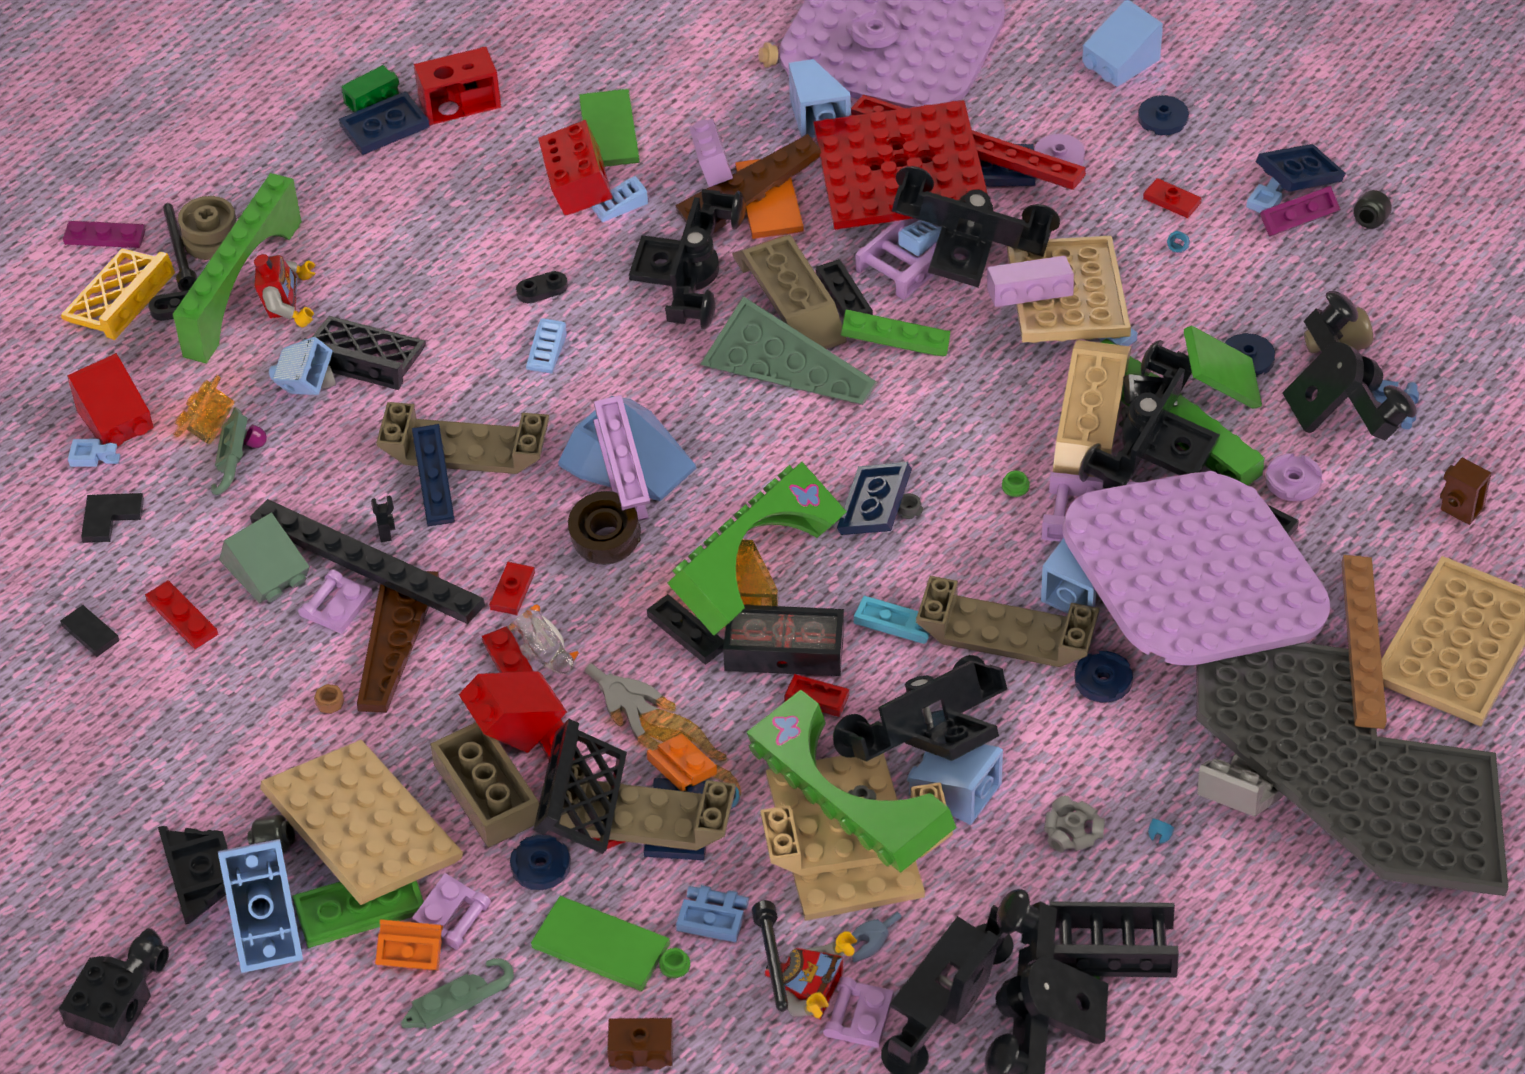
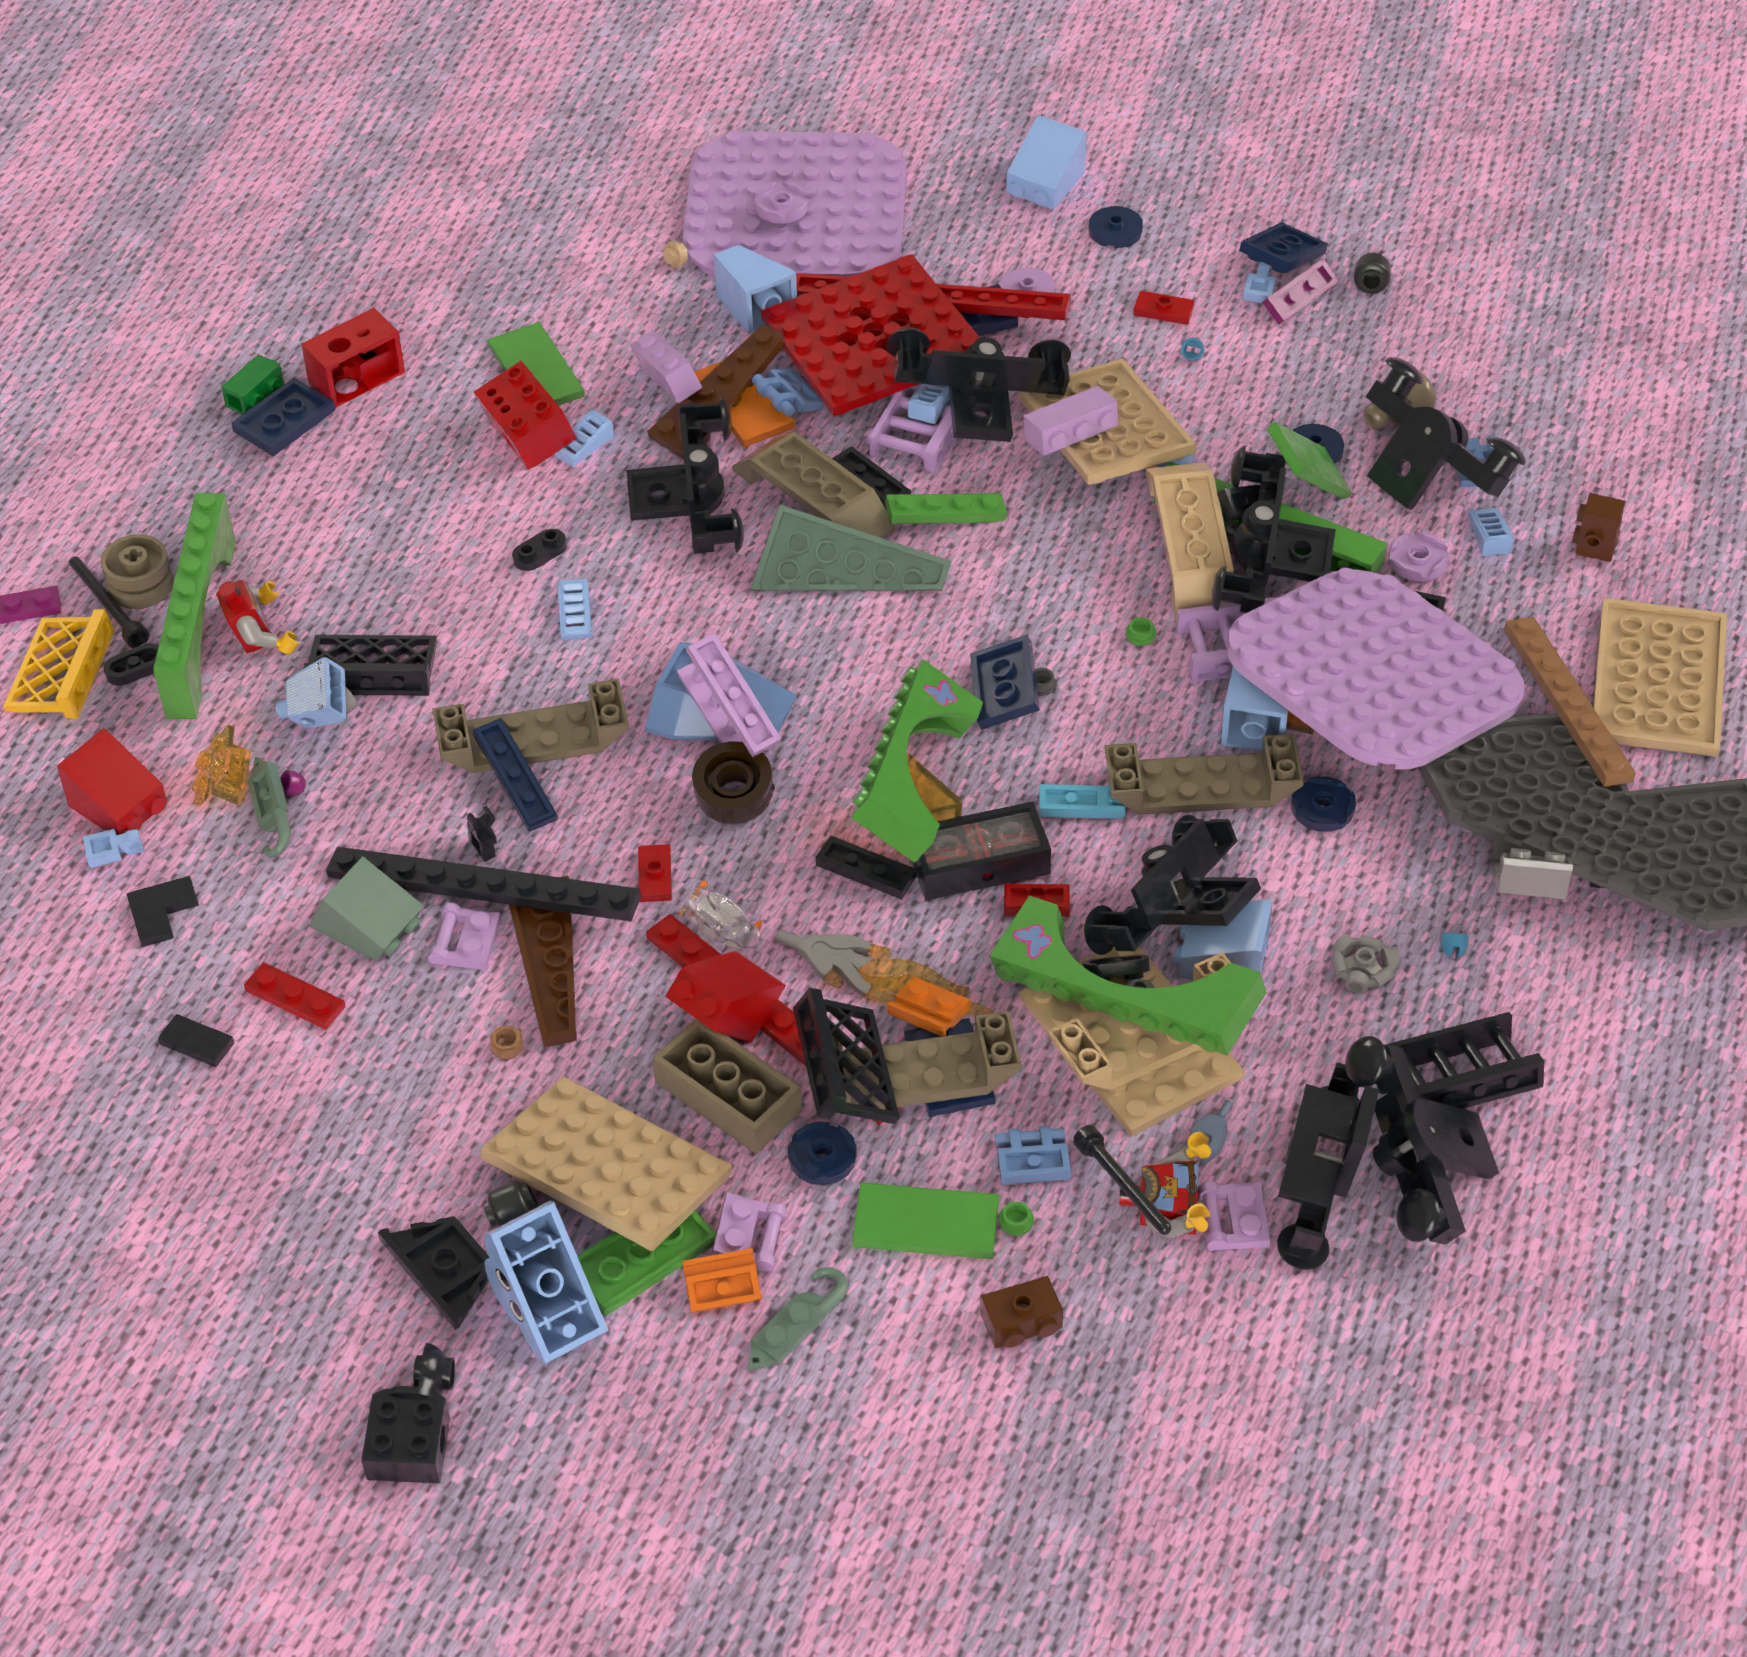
camera: 20 degrees left, 0 degrees up
(812, 195) = (787, 391): none -> medium blue plate
(862, 773) = (1129, 966): none -> black plate
(1370, 483) = (1494, 536): none -> light blue slope

